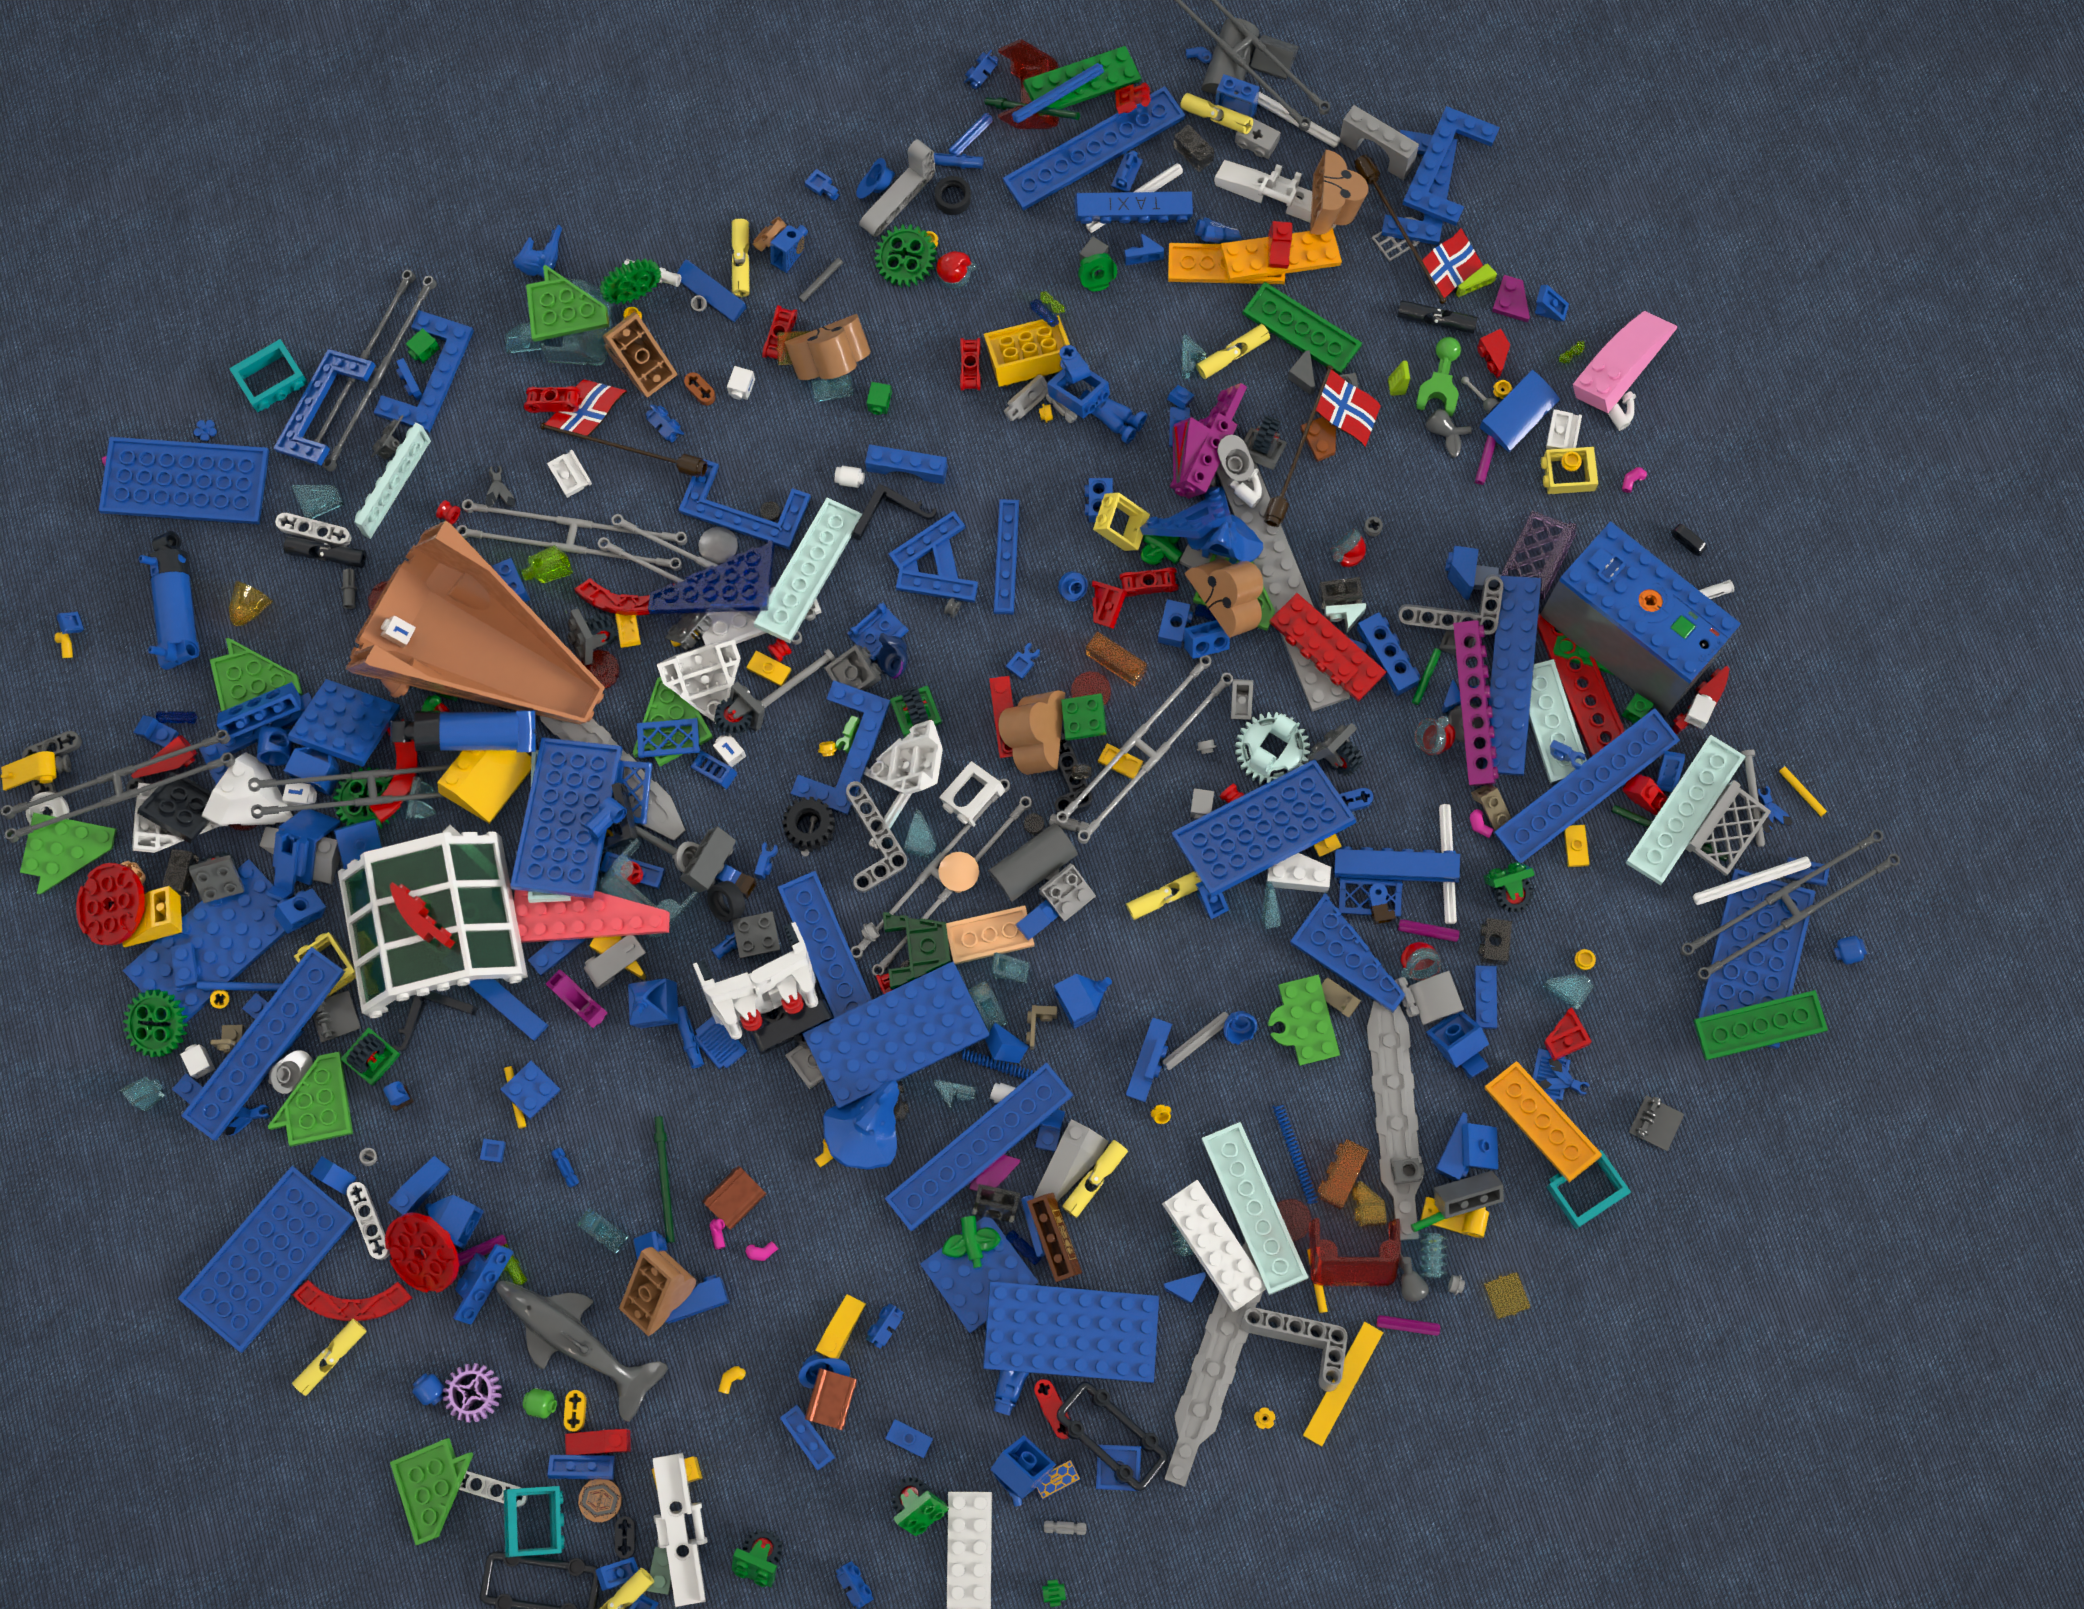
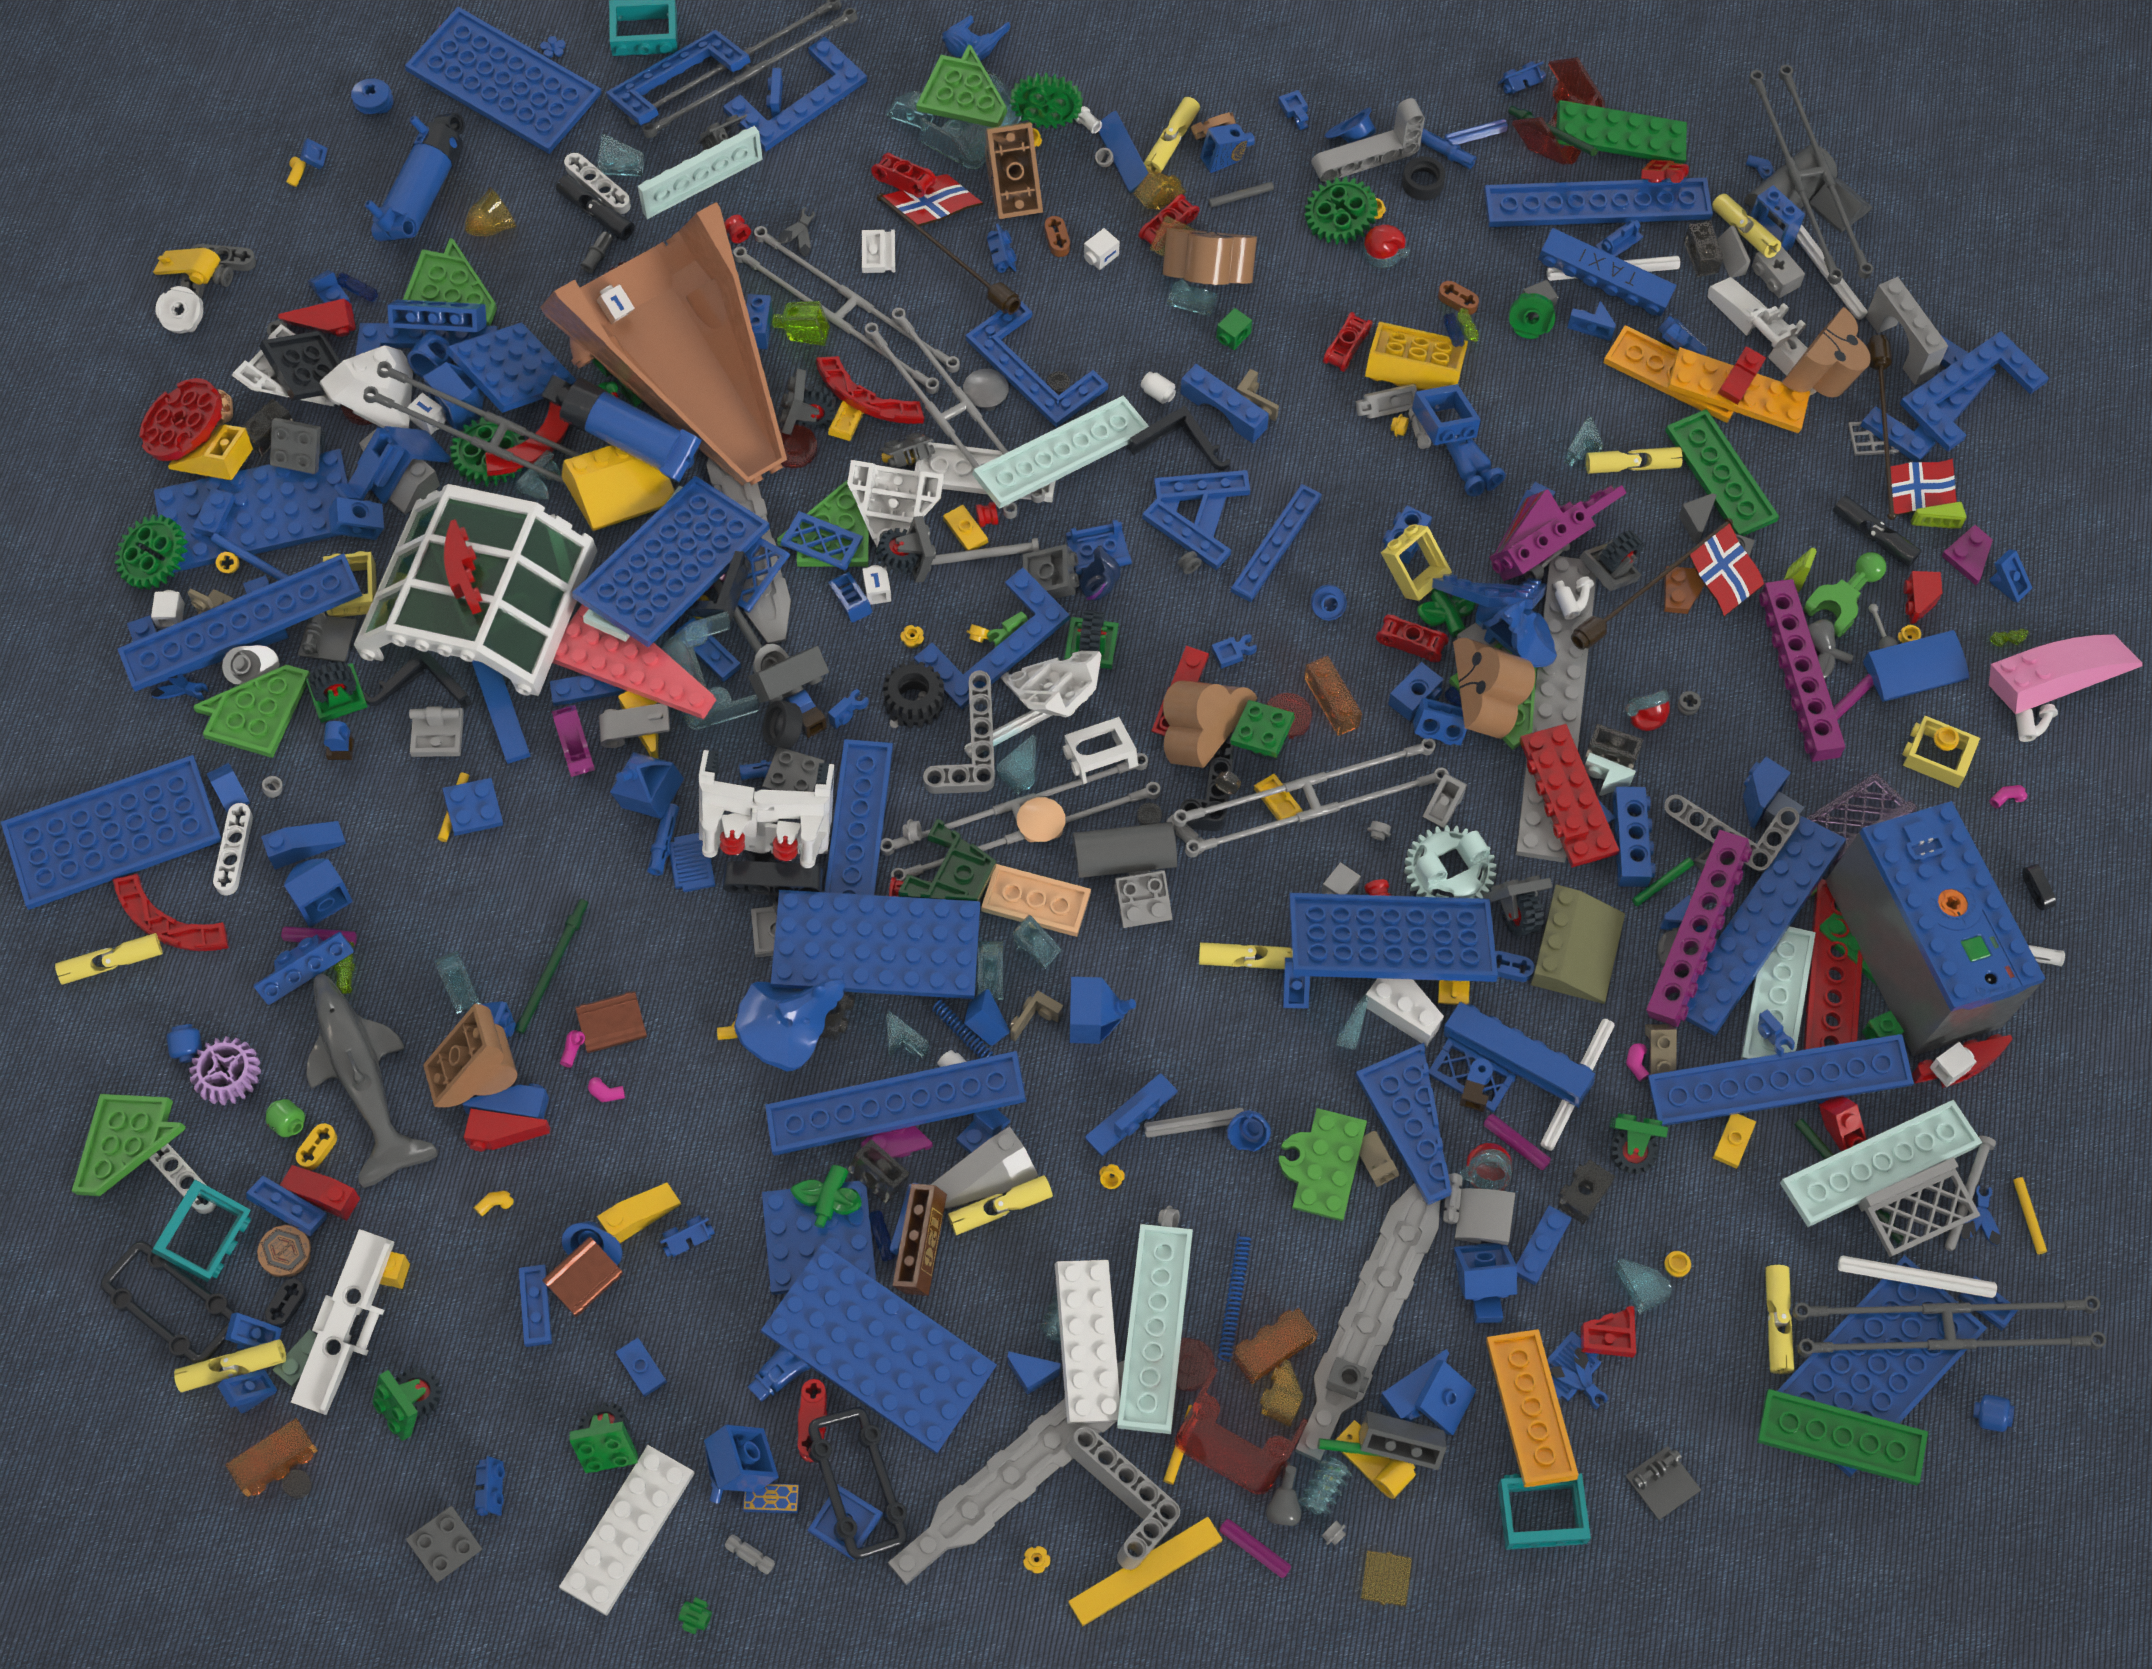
camera: 25 degrees right, 10 degrees down
(63, 849) = (171, 349): bright green wing -> none
(79, 550) = (372, 96): none -> blue piece
(119, 795) = (143, 288): dark grey bar -> none
(143, 1093) = (96, 611): clear light blue slope -> none
(357, 839) = (453, 473): blue plate -> none
(422, 346) = (807, 69): green brick -> none
(440, 1261) = (262, 901): red plate -> none
(466, 1046) = (436, 731): none -> light grey plate
(492, 1150) = (397, 846): blue plate -> none
(565, 1167) = (459, 901): blue axle -> none
(609, 813) = (716, 574): blue piece -> none
(638, 874) = (708, 656): red wheel -> none
(700, 1325) = (498, 1130): none -> red slope
(730, 587) = (973, 427): clear blue wing -> none
(757, 310) = (1158, 190): none -> clear yellow slope
(779, 781) = (912, 642): none -> yellow plate
(918, 446) = (1249, 387): none -> dark tan bracket
(1032, 282) = (1458, 297): none -> dark orange beam
(1037, 920) = (1094, 909): blue slope -> none
(1057, 93) = (1586, 126): blue axle -> none
(1073, 364) = (1453, 386): blue piece -> none
(1107, 603) = (1355, 637): red wing -> none
(1180, 396) = (1551, 477): blue plate -> none
(1217, 139) = (1735, 256): none -> light grey slope
(1218, 1122) = (1169, 1217): none -> light grey plate
(1235, 458) = (1574, 556): light grey piece -> none
(1392, 759) = (1578, 945): none -> olive slope
(1434, 735) = (1637, 942): clear light blue piece -> none
(1452, 461) = (1784, 594): none -> magenta brick
(1563, 430) = (1956, 707): white plate -> none
(1668, 951) = (1778, 1303): none -> light yellow piece
(1670, 770) = (1885, 1111): blue tile -> none

